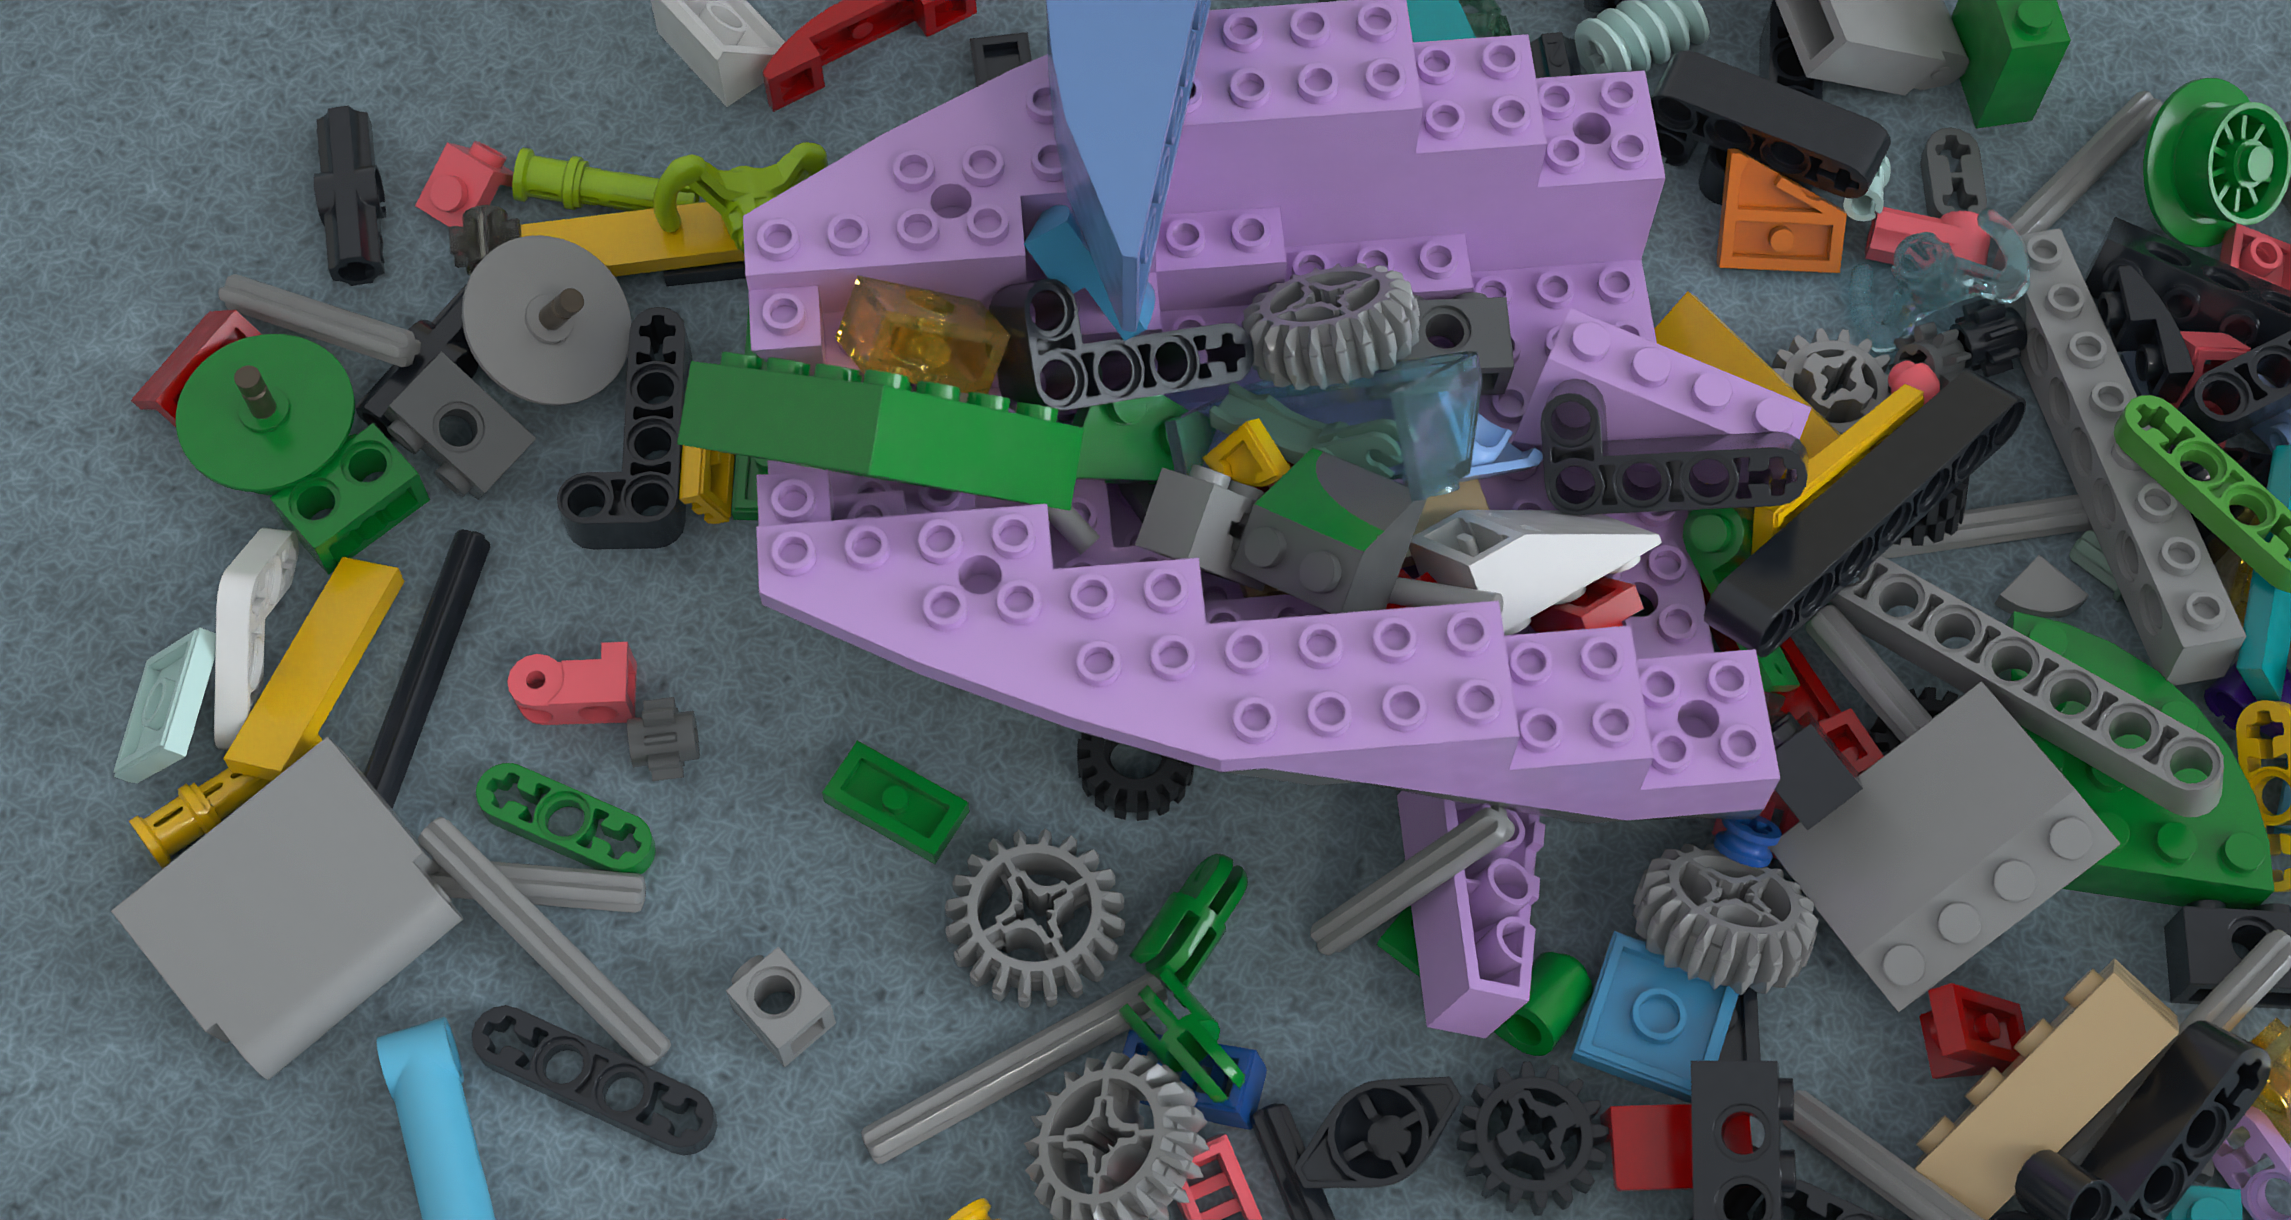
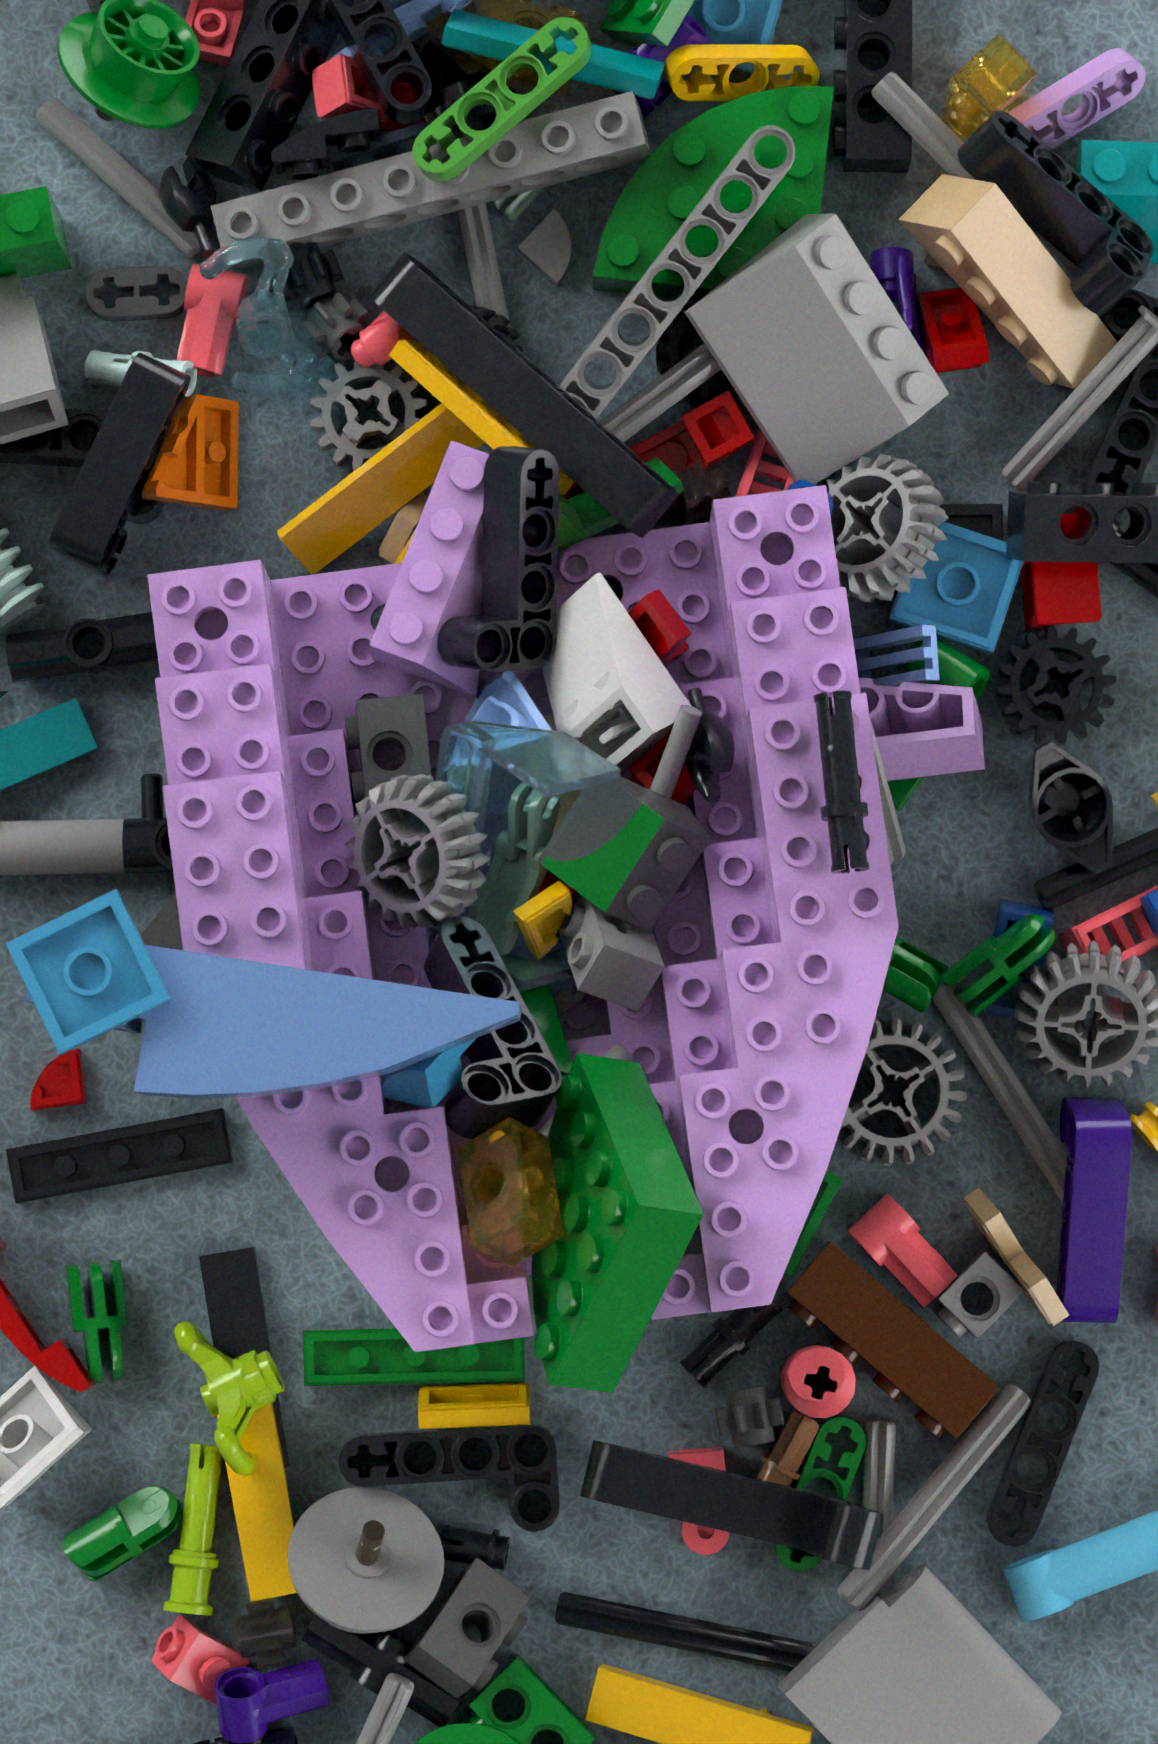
camera: 90 degrees left, 20 degrees up
(412, 223) = (253, 1700): none -> dark purple piece
(534, 772) = (733, 1503): none -> black beam
(546, 466) = (487, 1547): none -> black pin
(601, 775) = (789, 1449): none -> medium nougat axle
(612, 117) = (123, 1531): none -> green arm
(693, 802) = (827, 1401): none -> coral piece
(734, 902) = (892, 1340): none -> reddish brown brick
(760, 730) = (727, 1340): none -> black pin
(799, 1058) = (1004, 1243): none -> tan tile
(840, 105) = (99, 1317): none -> green arm
(855, 913) = (894, 1241): none -> coral piece
(876, 1139) = (1094, 1207): none -> dark purple beam
(1392, 682) = (841, 783): none -> black pin
(1561, 922) = (897, 637): none -> light blue tile
(1811, 769) = (764, 455): black brick -> none
(2035, 965) = (896, 275): none -> dark purple plant
(2063, 213) = (190, 205): none -> black hand

